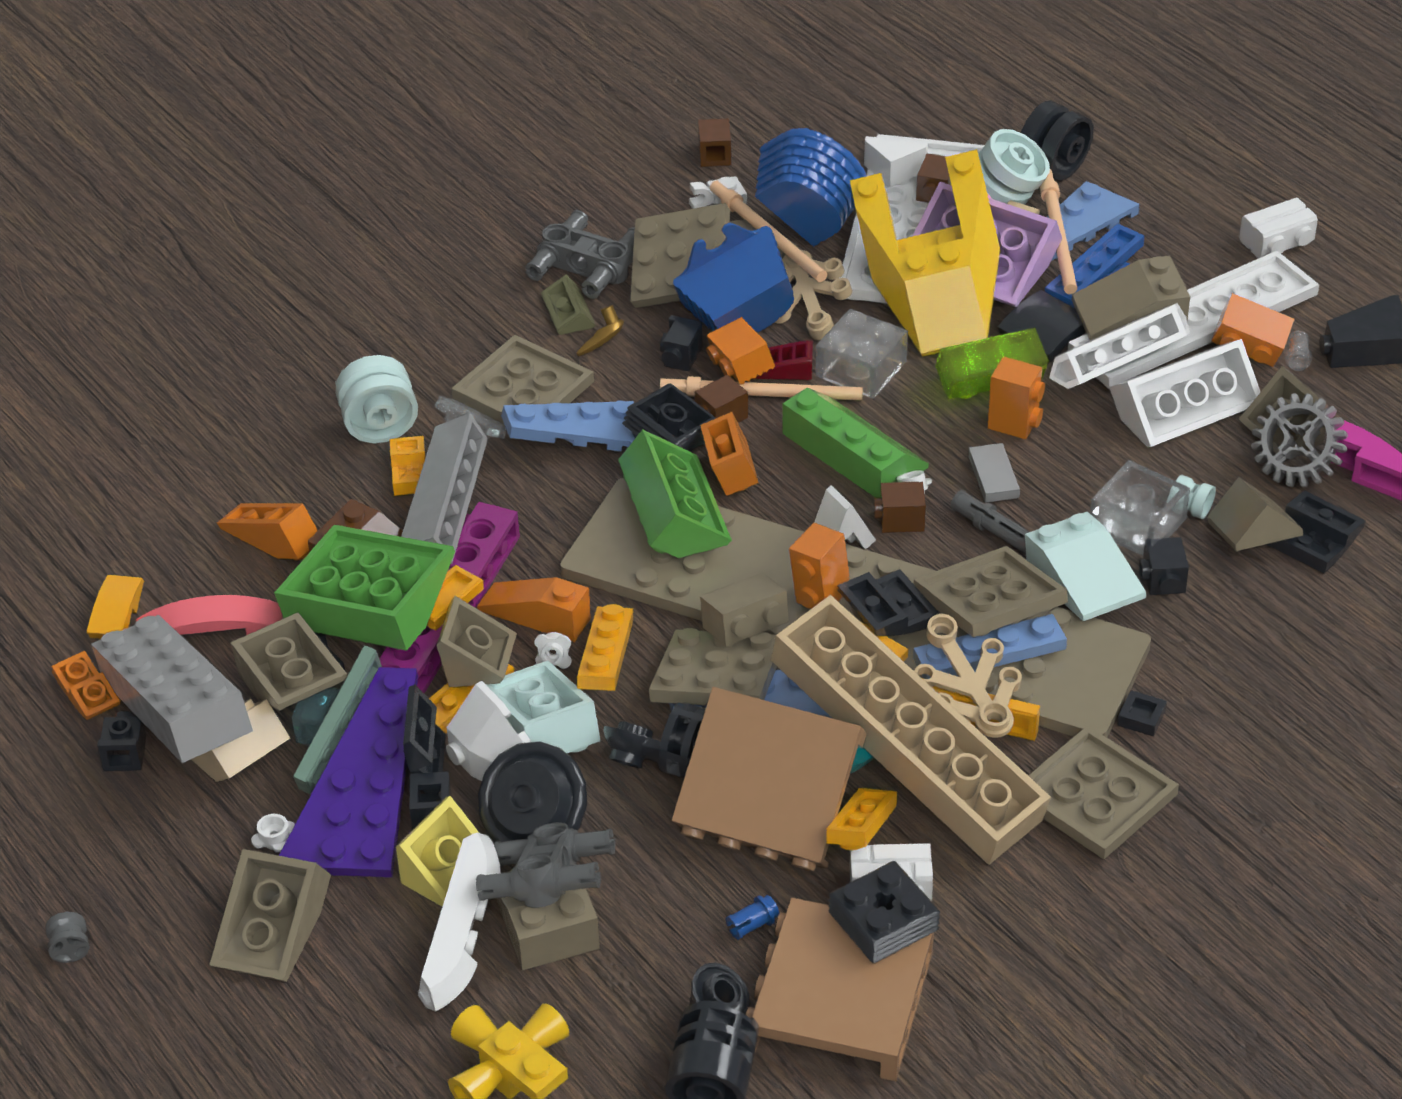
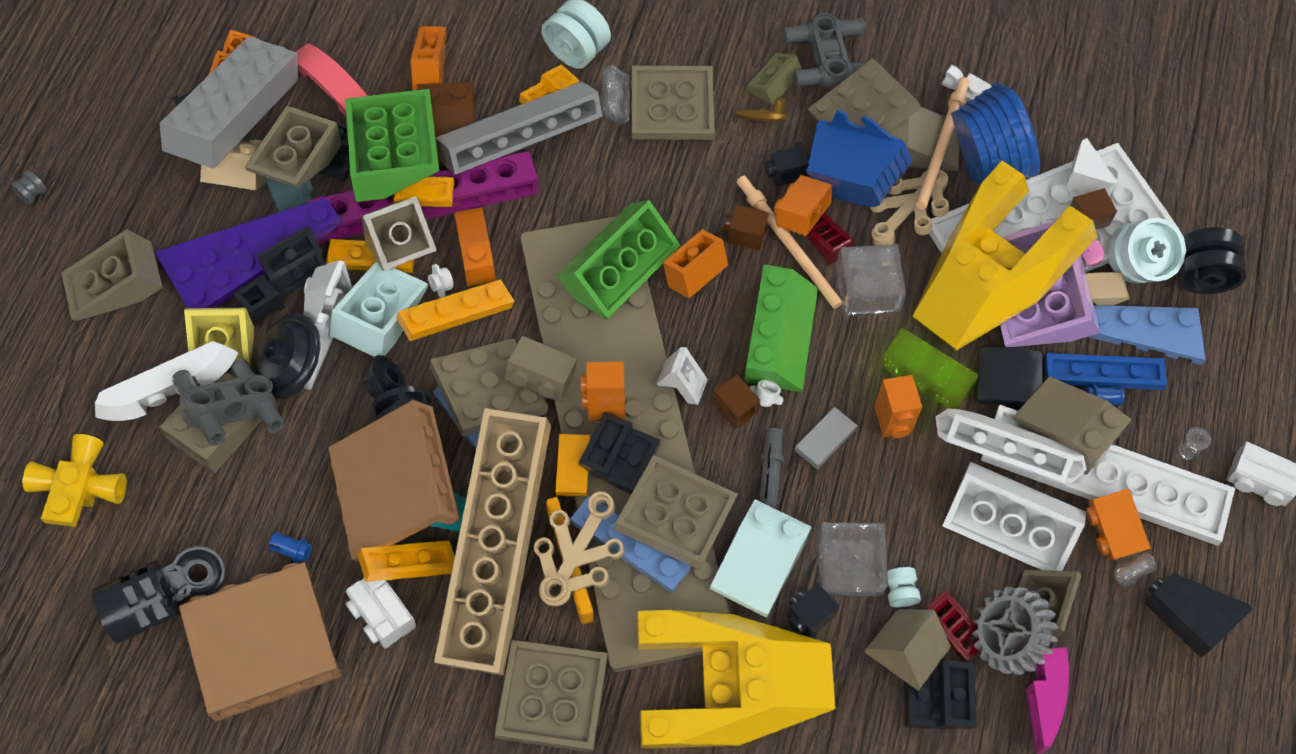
camera: 50 degrees right, 20 degrees up
(114, 605) = (310, 22): light orange slope -> none
(272, 832) = (179, 228): white plate -> none
(337, 720) = (277, 202): sand green tile -> none
(570, 421) = (666, 167): medium blue wing -> none
(669, 416) = (711, 202): black brick -> none
(714, 142) = (1015, 50): reddish brown brick -> none
(884, 911) = (327, 646): black brick -> none
(1050, 194) = (1151, 294): light nougat bar -> none
(1142, 713) = (657, 681): black tile -> none
(1196, 636) = (752, 679): none -> yellow wedge
(1215, 243) = (1196, 441): none -> clear pin
(1258, 480) = (955, 610): none -> dark red slope

